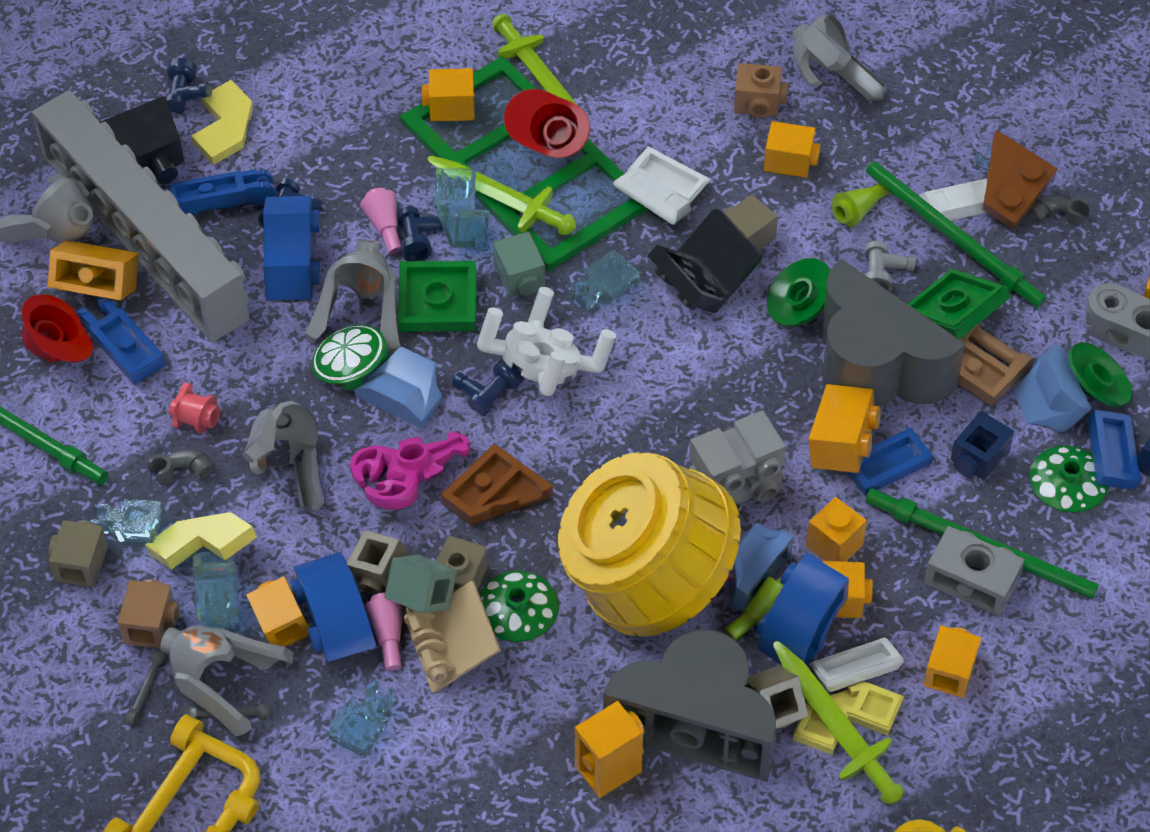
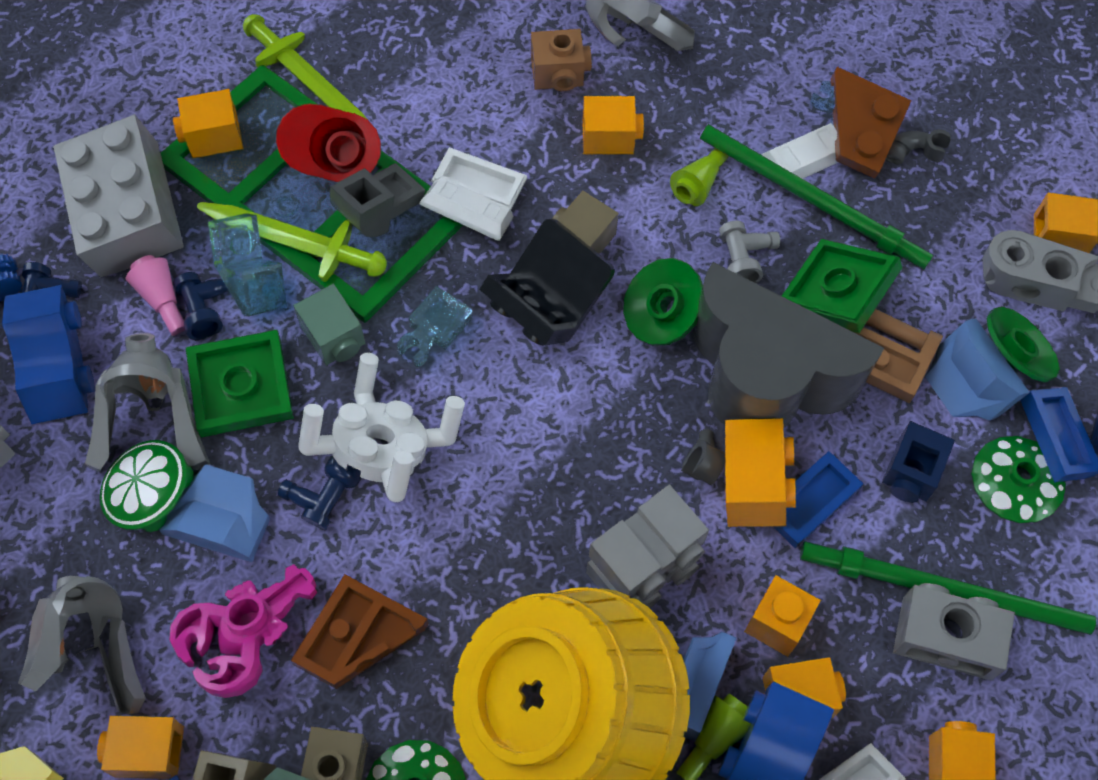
camera: 15 degrees left, 10 degrees up
(315, 530) = (141, 747): none -> light orange brick
(365, 138) = (117, 196): none -> light grey brick
(576, 173) = (375, 199): none -> dark grey brick
(803, 415) = (704, 459): none -> dark grey piece

